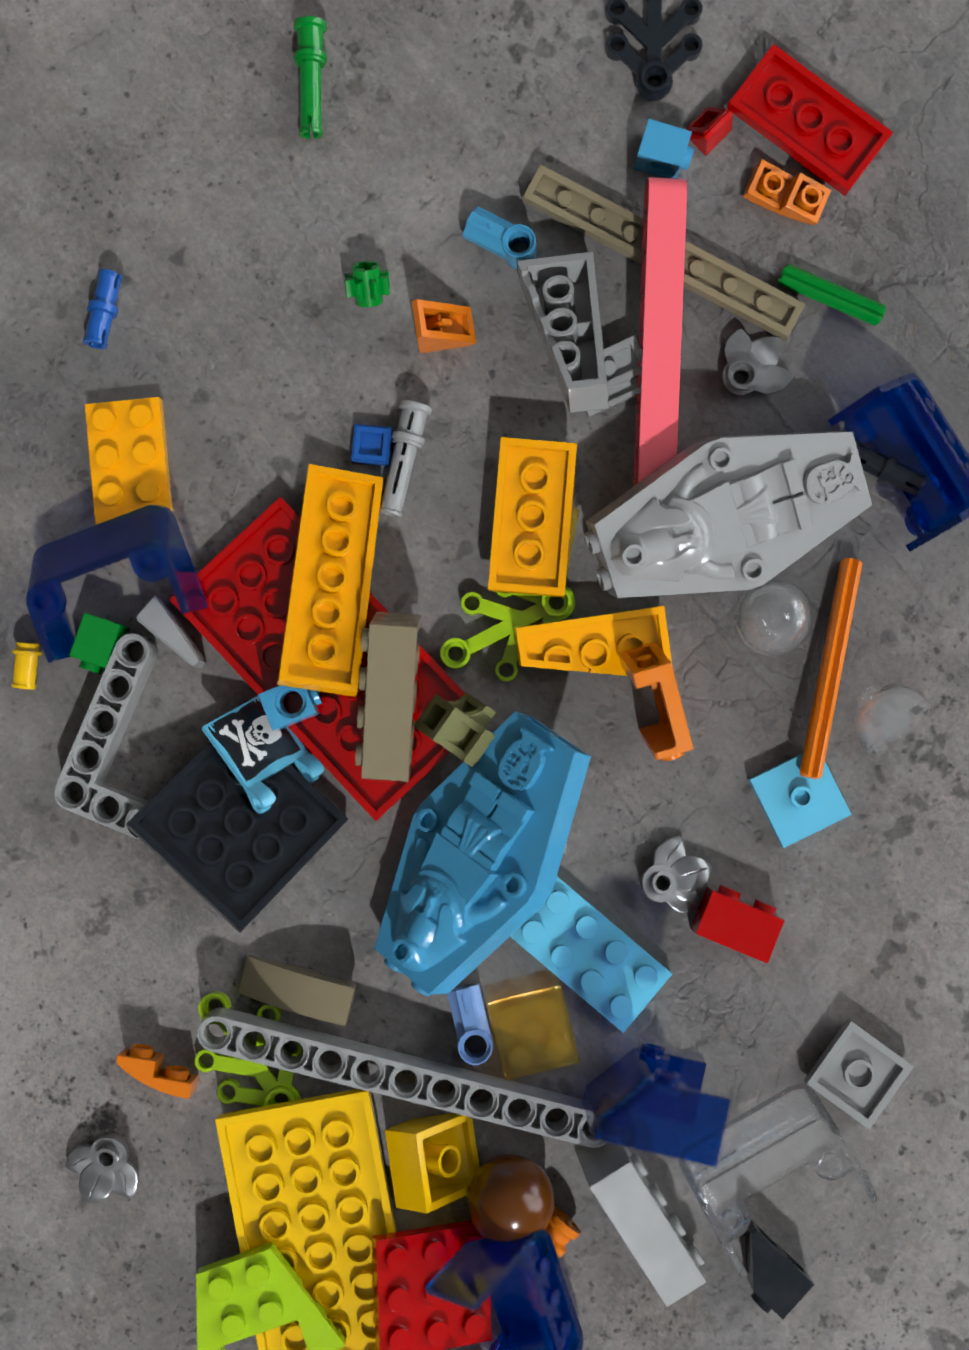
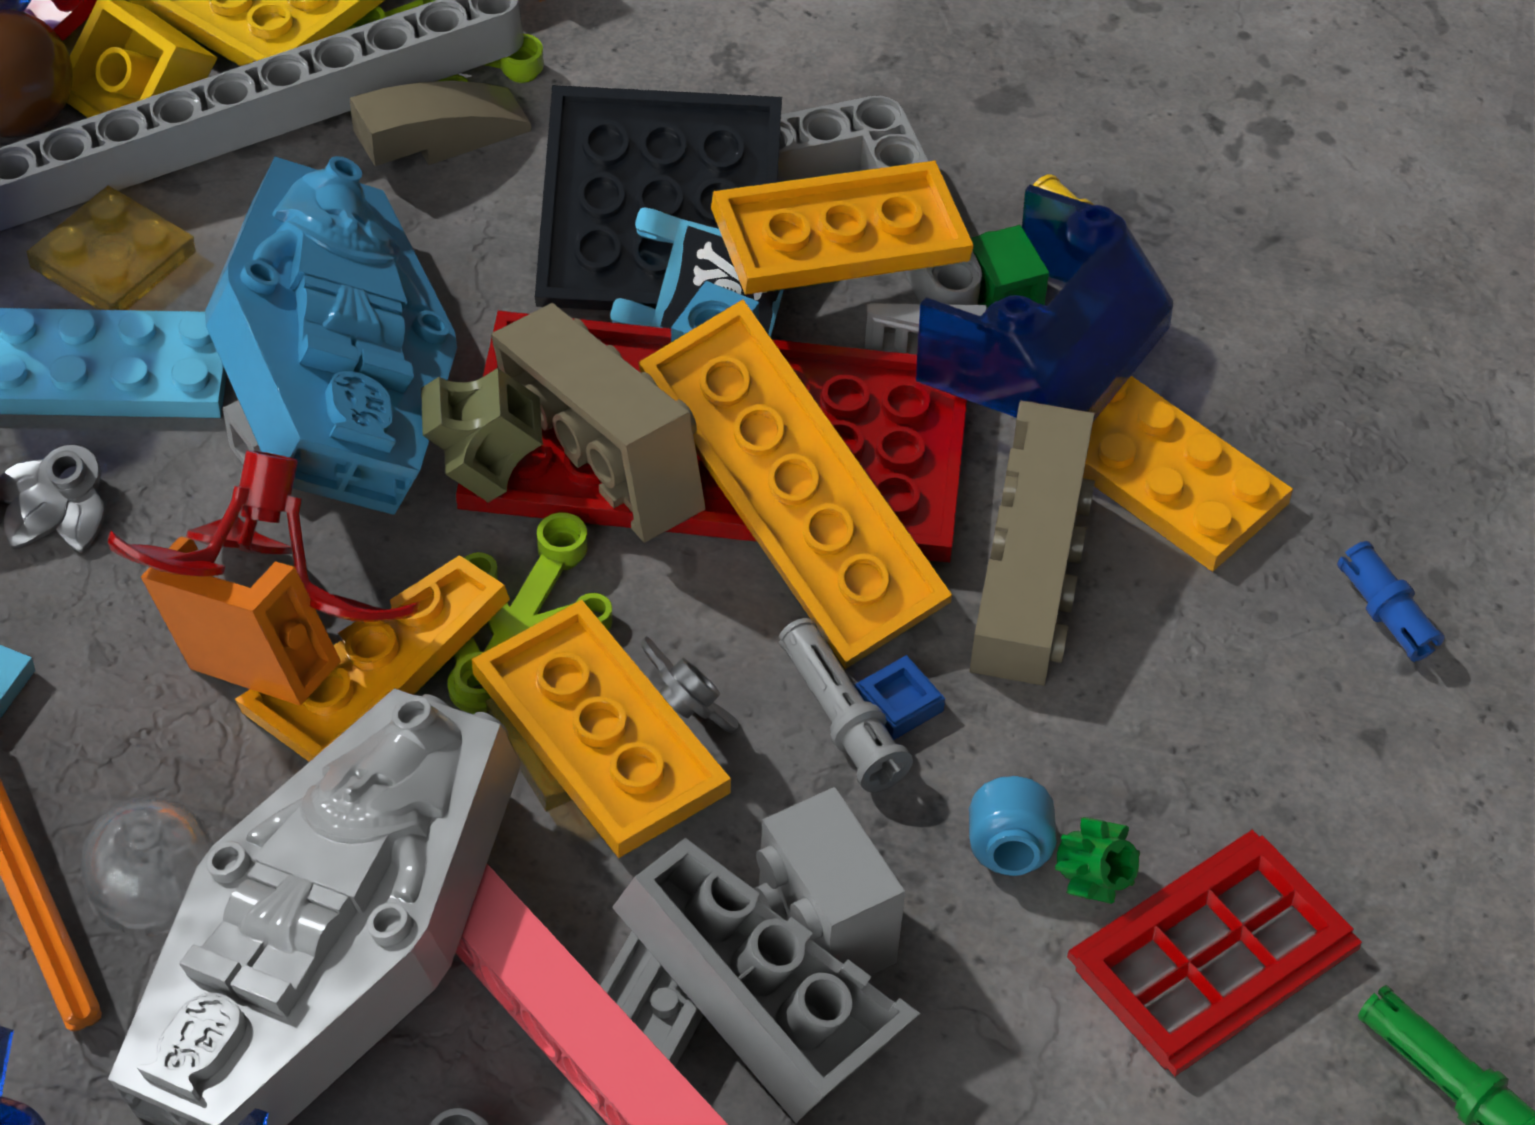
camera: 135 degrees right, 35 degrees down
(171, 712) = (840, 227): none -> light orange plate
(245, 461) = (1033, 545): none -> dark tan wedge
(351, 212) = (1214, 951): none -> red piece
(387, 331) = (1012, 825): none -> dark azure head
(442, 325) = (953, 881): orange slope -> none
(469, 1020) = (192, 202): medium blue piece -> none
(477, 502) = (688, 688): none -> flat silver plate
(499, 235) = (978, 1059): dark azure piece -> none
(502, 349) = (831, 881): none -> light grey brick
(686, 726) = (262, 495): none -> red plant

